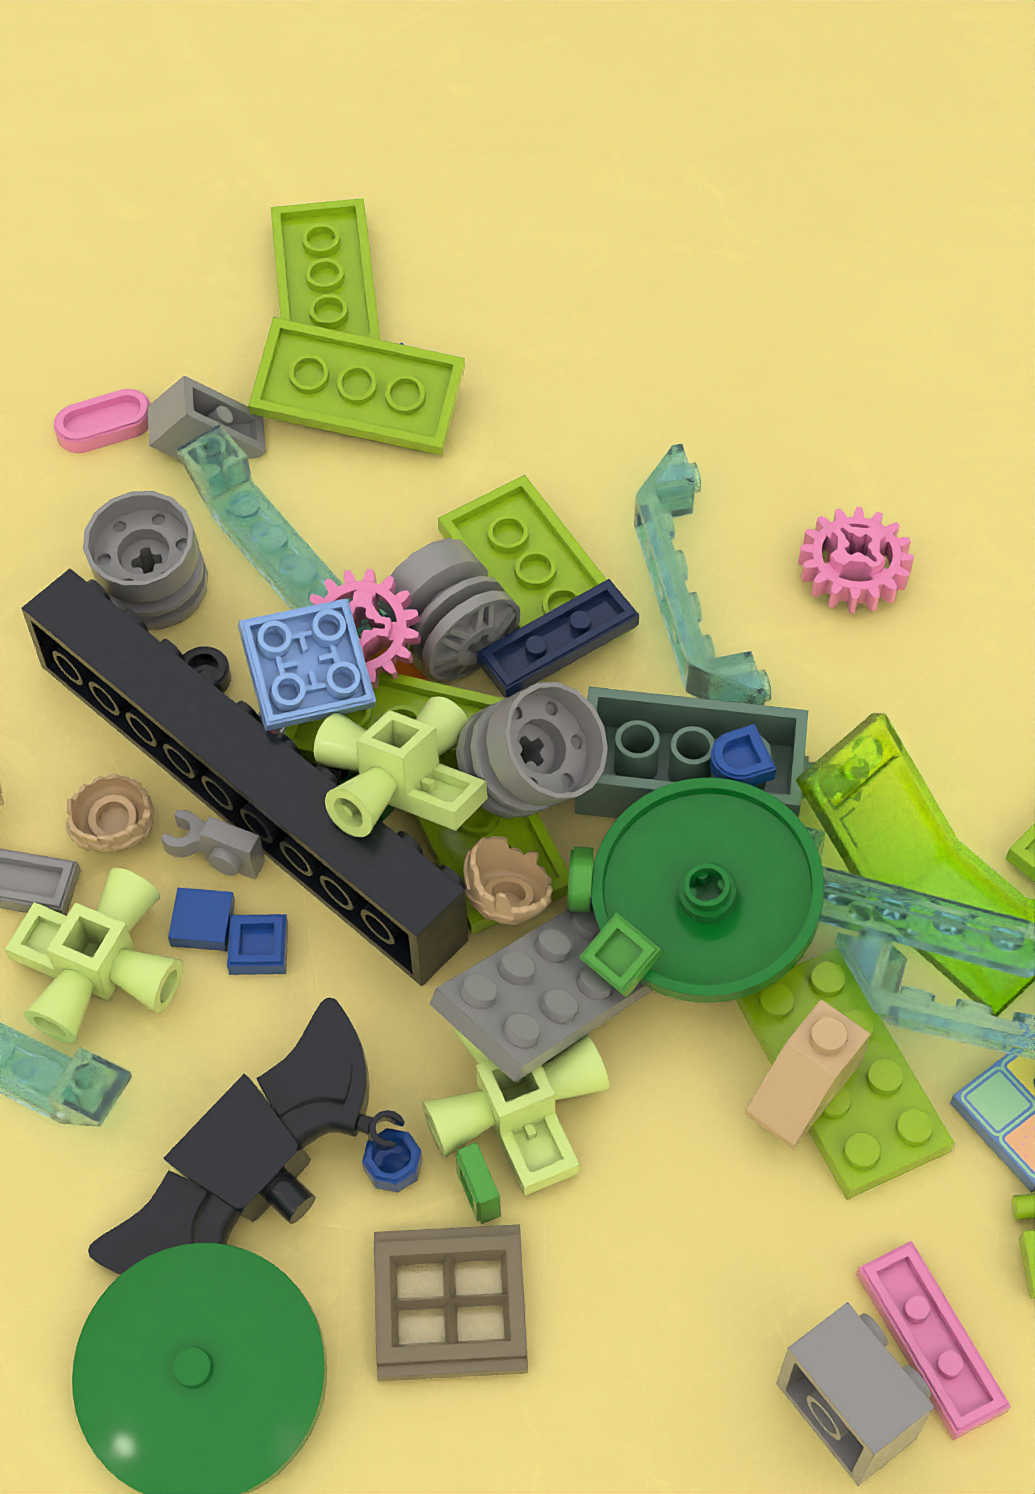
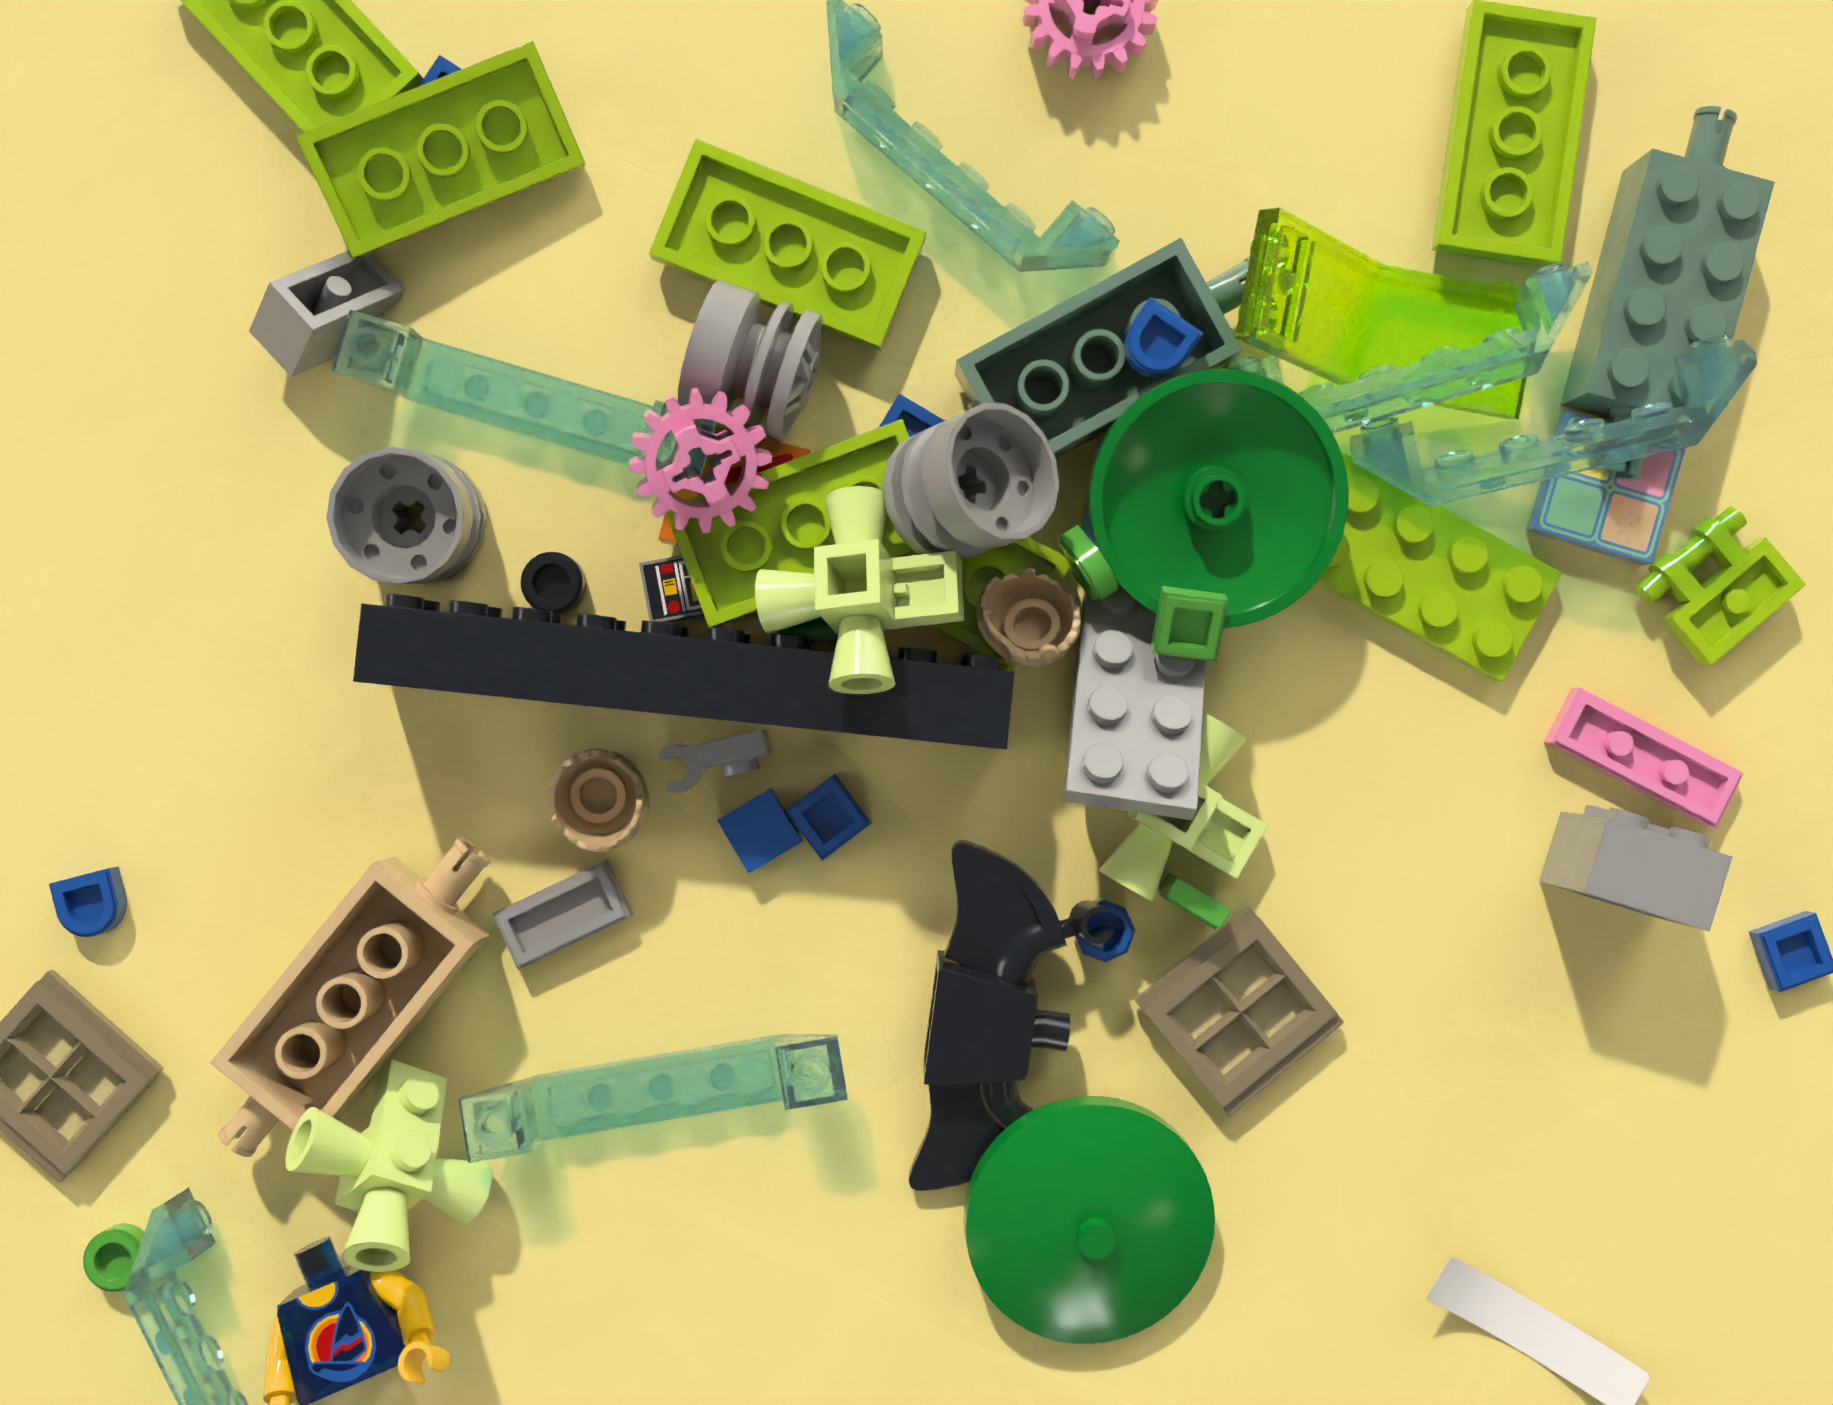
camera: 35 degrees left, 30 degrees up
(92, 955) = (700, 945): yellowish green brick -> none
(102, 420) = (208, 370): bright pink tile -> none
(306, 664) = (691, 550): light blue tile -> none
(557, 638) = (874, 313): dark blue tile -> none
(808, 1073) = (1418, 612): tan slope -> none

